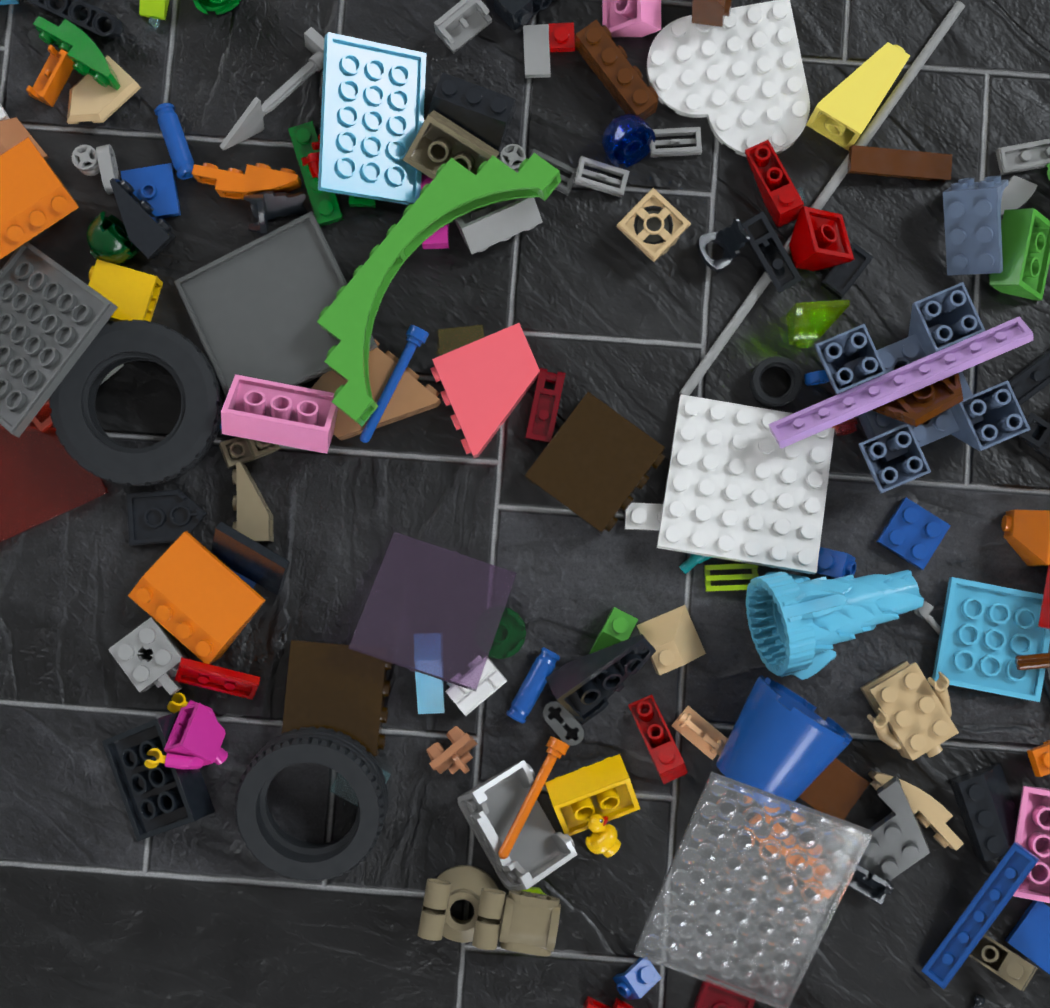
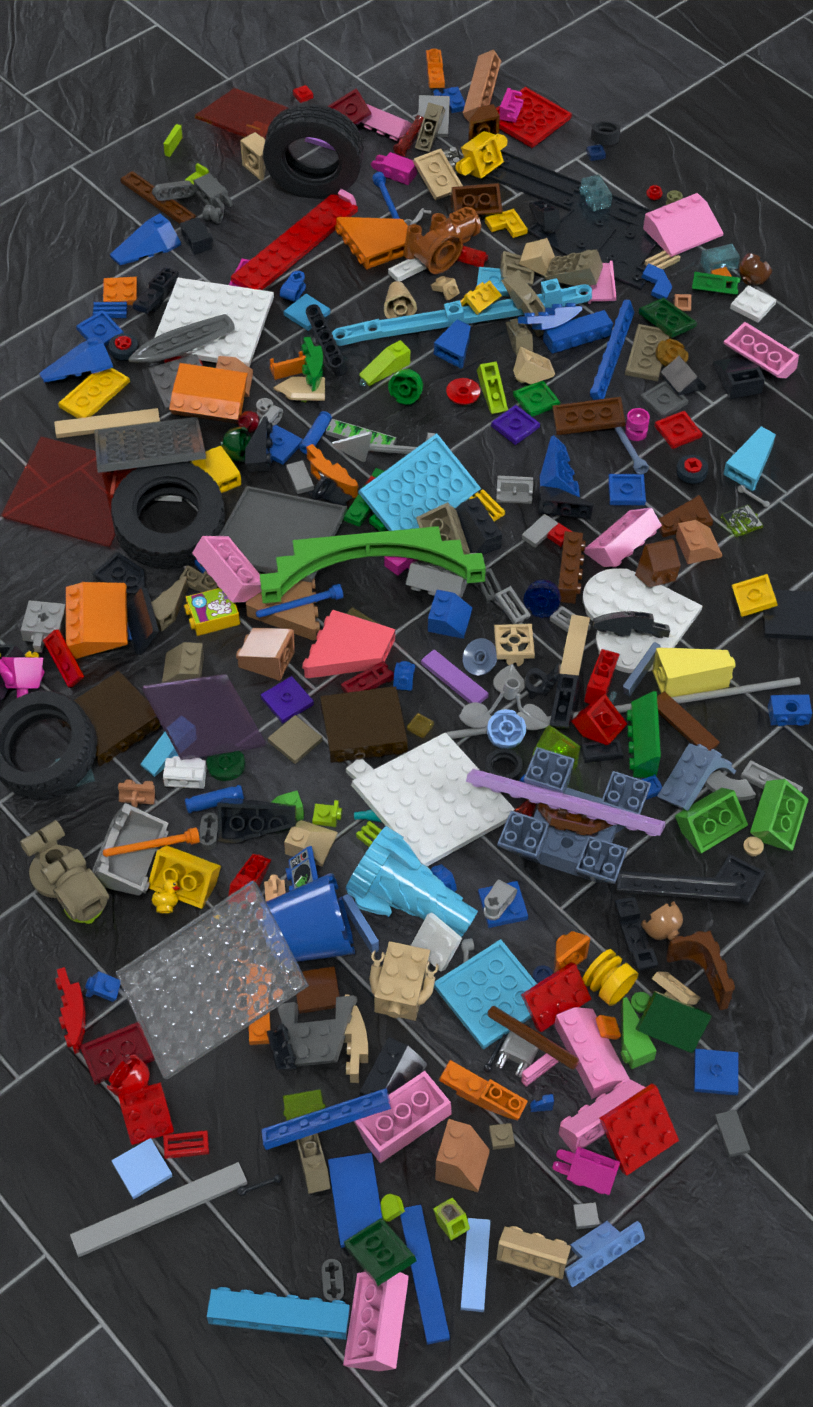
camera: 40 degrees right, 30 degrees down
(88, 193) = (249, 420): none -> dark red animal
(217, 215) = (300, 477): none -> light grey tile
(226, 99) = (344, 430): none -> tile
(303, 477) = (211, 611): none -> brick
(343, 566) = (184, 662): none -> dark tan slope
(412, 472) = (267, 651): none -> nougat slope
(453, 60) = (490, 505): none -> yellow tile
(486, 503) = (287, 699): none -> dark purple plate
(540, 541) = (295, 739): none -> dark tan tile
(549, 249) = (449, 615): none -> blue slope
(574, 364) = (404, 675): none -> blue bracket
(626, 320) = (454, 677): none -> medium lavender tile
(631, 284) = (473, 654): none -> sand blue dish
(645, 407) = (420, 725): none -> clear yellow tile
(657, 596) = (327, 814): none -> lime bracket
(685, 273) = (509, 685): none -> light grey plant
(711, 691) = (301, 868): none -> slope
(714, 173) = (575, 645): none -> tan slope
(746, 340) = (506, 729): none -> light blue cylinder
(747, 95) = (623, 622): none -> black slope
(808, 138) = (640, 670): none -> sand blue tile
(812, 685) = (360, 923): none -> medium blue tile
(882, 217) = (644, 736): none -> green slope
(902, 640) = (438, 939): none -> white plate
(917, 537) = (498, 900): none -> light grey piece
(929, 269) = (655, 786): none -> blue tile
(935, 912) = (302, 1104): none -> clear neon green piece
(995, 39) = (781, 705): none -> blue brick
(1019, 574) = (541, 973): none -> dark blue tile

